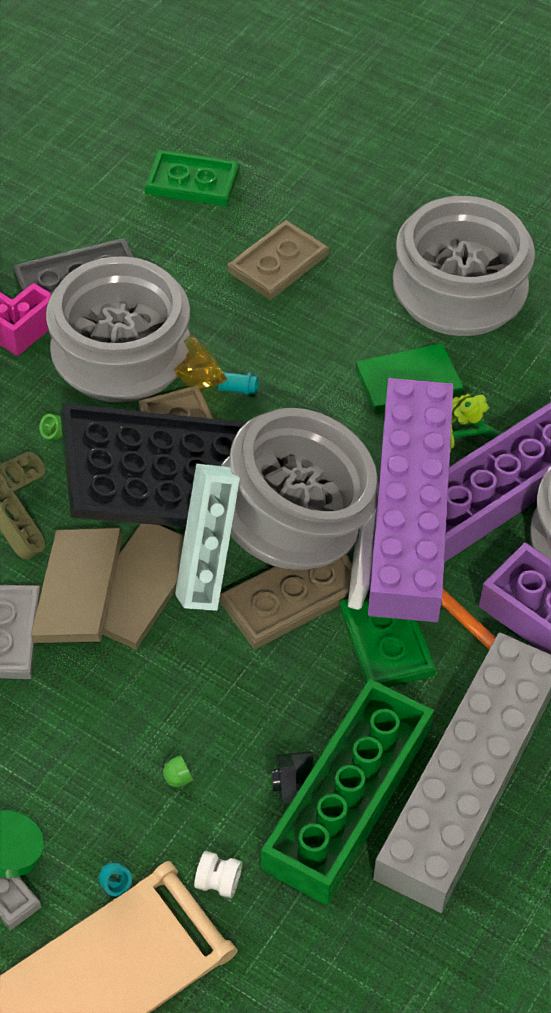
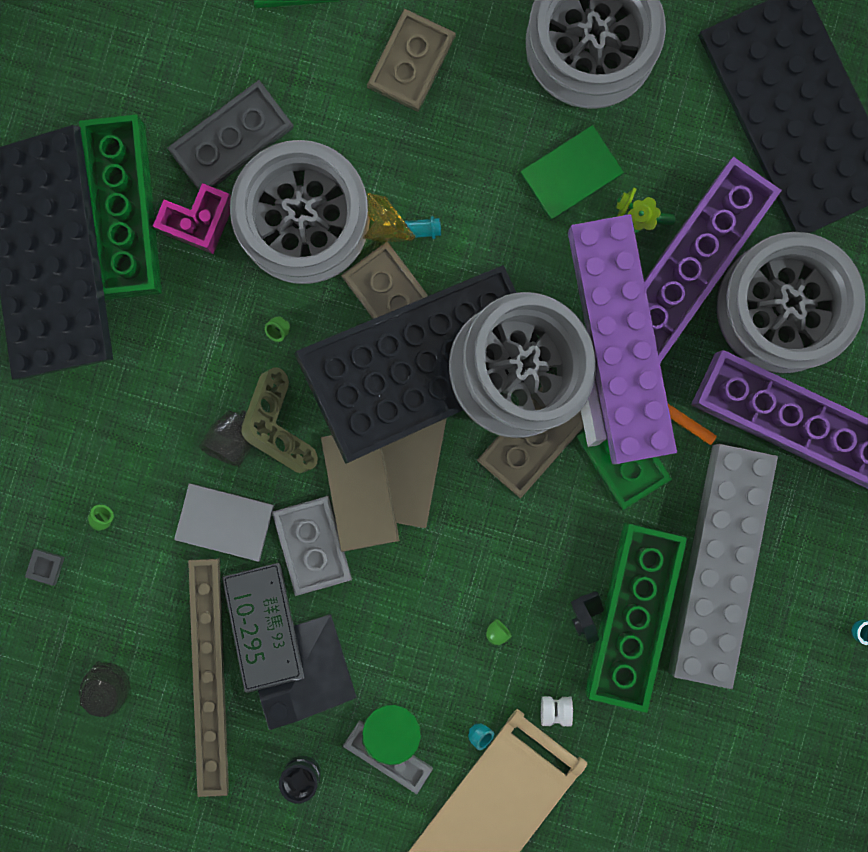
camera: 15 degrees left, 35 degrees up
(207, 537) = (461, 436): light aqua brick -> none

